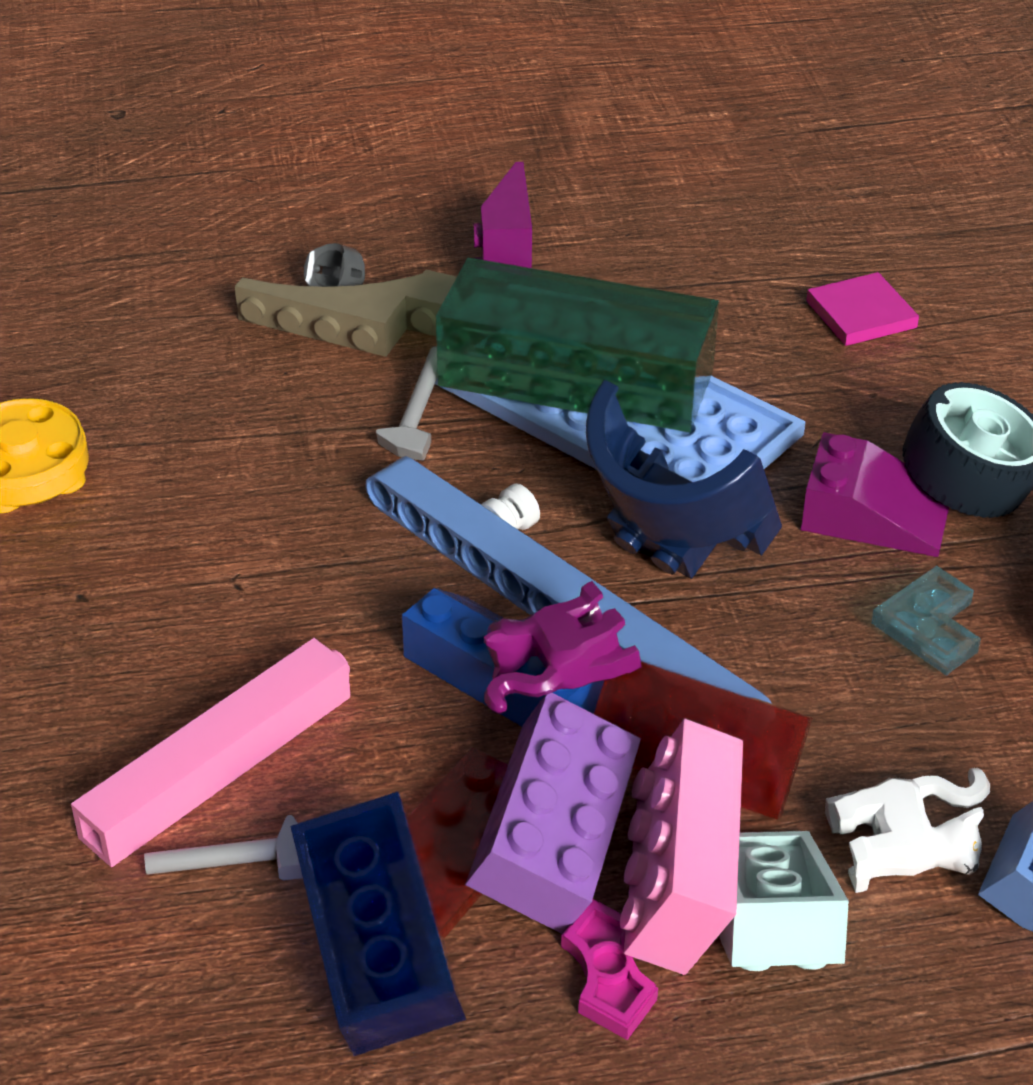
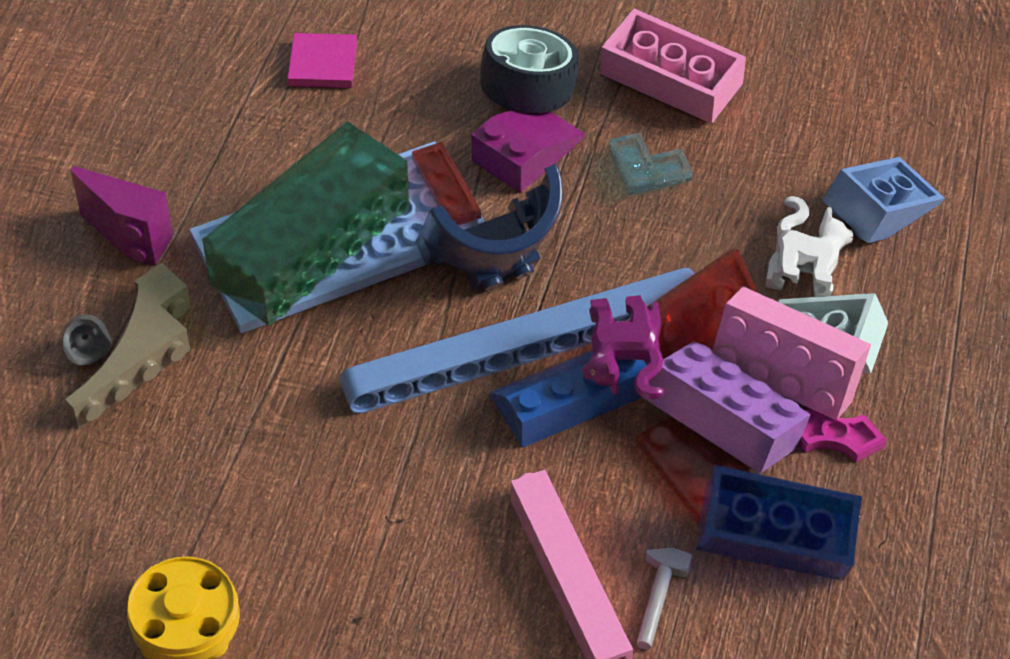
camera: 65 degrees left, 10 degrees up
(406, 438) = (306, 368): light grey piece -> none
(515, 506) = (422, 331): white wheel -> none
(756, 431) = (446, 183): none -> clear red tile

